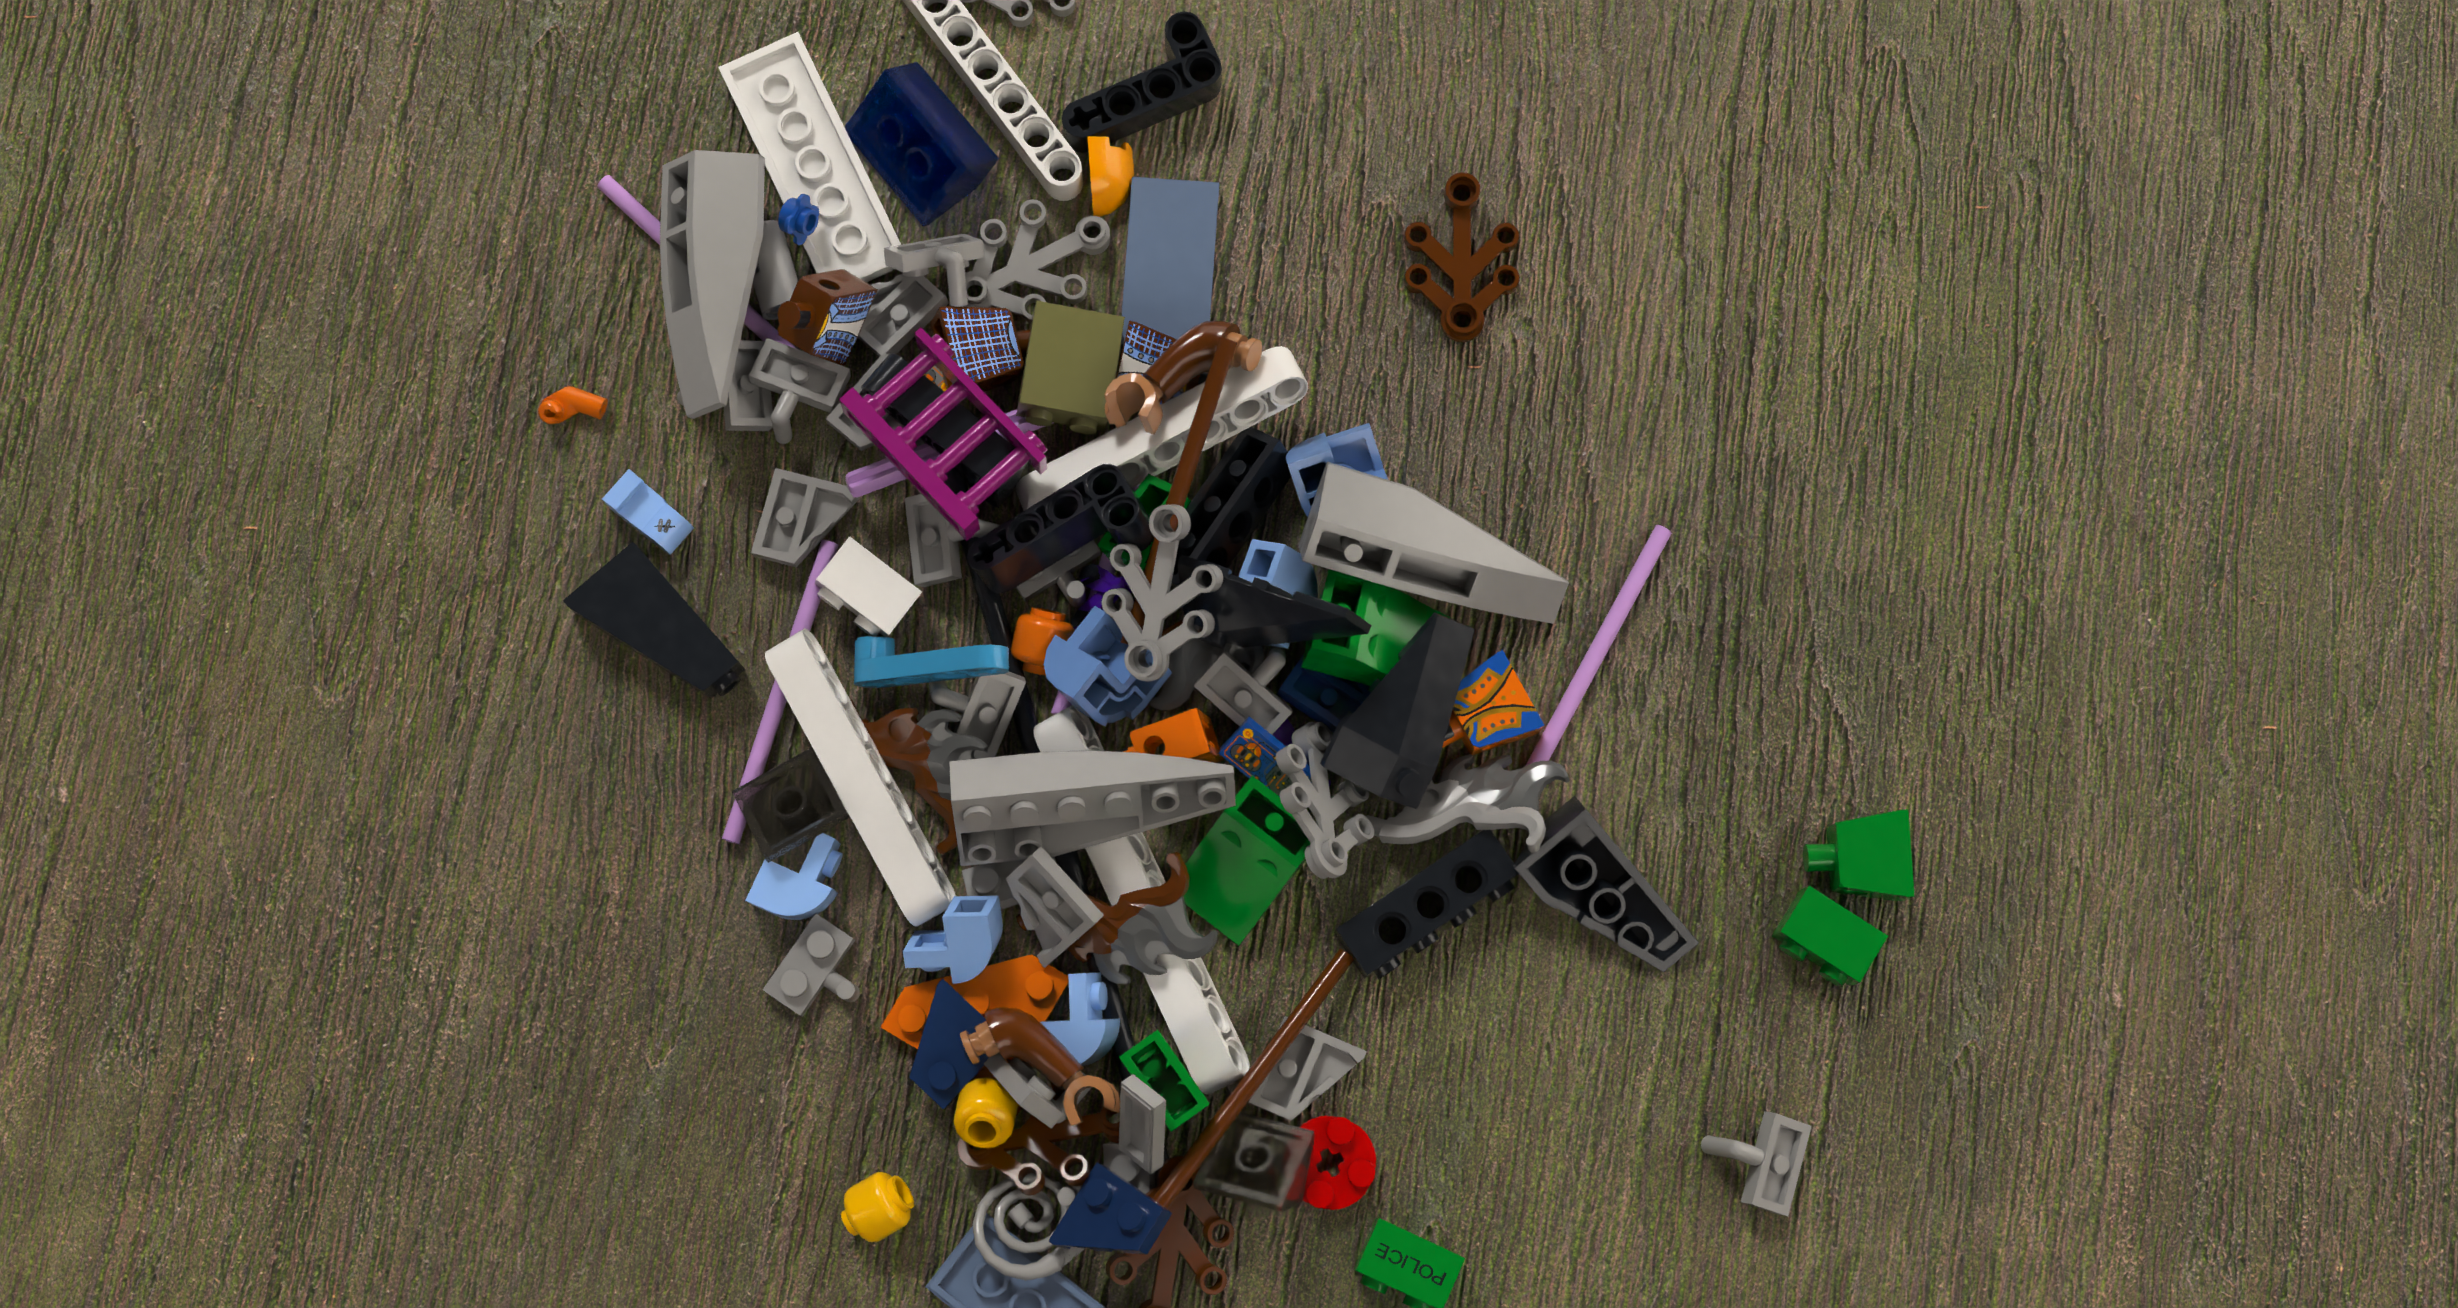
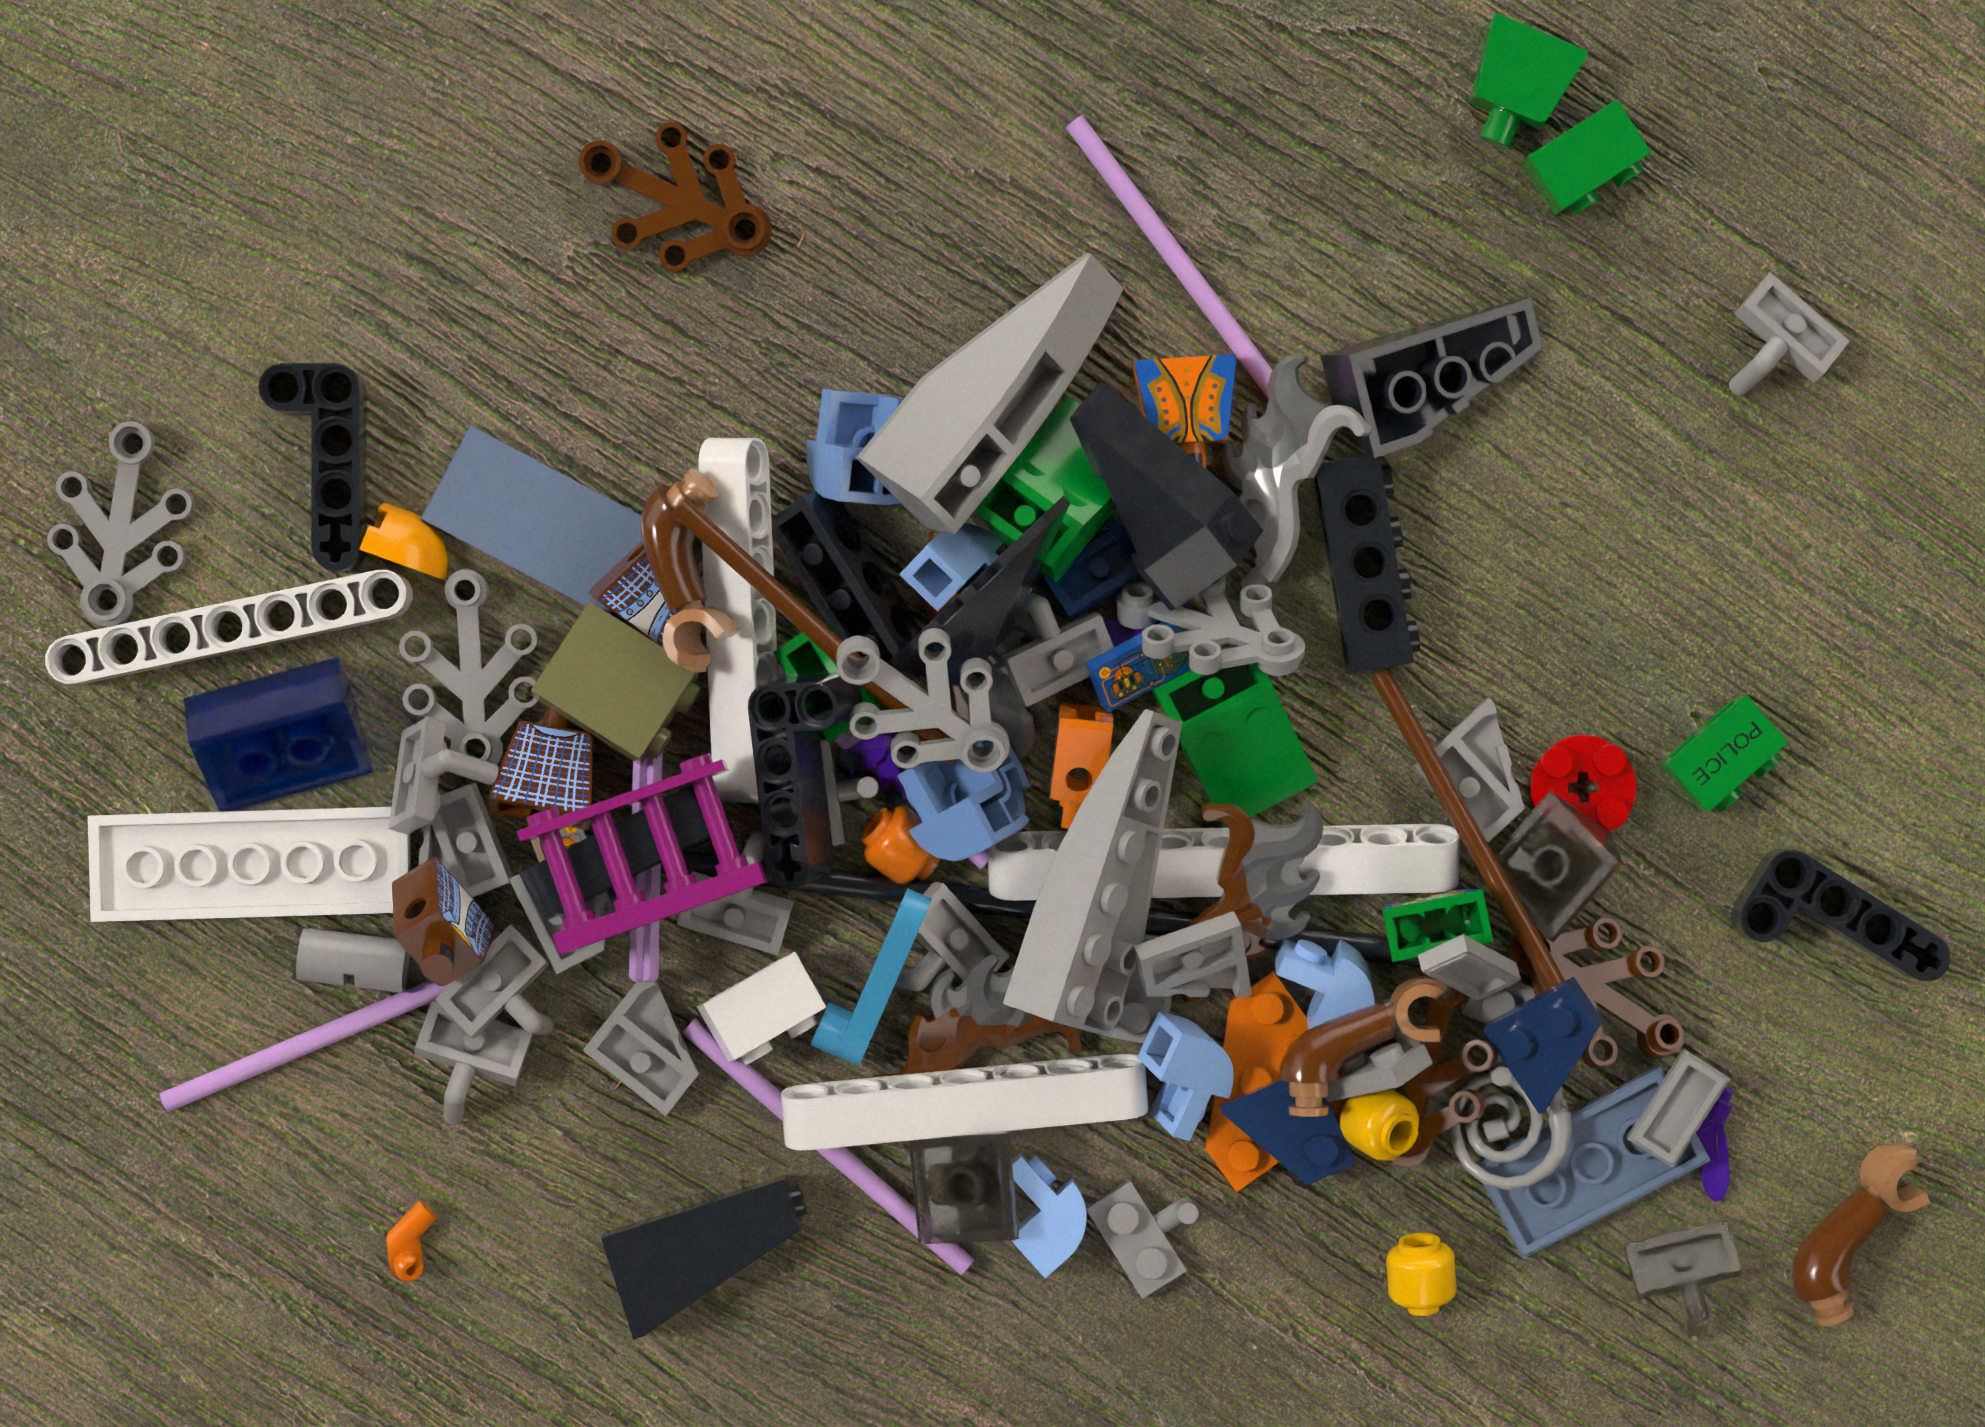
camera: 65 degrees left, 10 degrees up
(647, 512) = (571, 1207): light blue leg -> none
(708, 266) = (329, 1028): light grey wedge -> none
(798, 218) = (314, 907): blue plate -> none

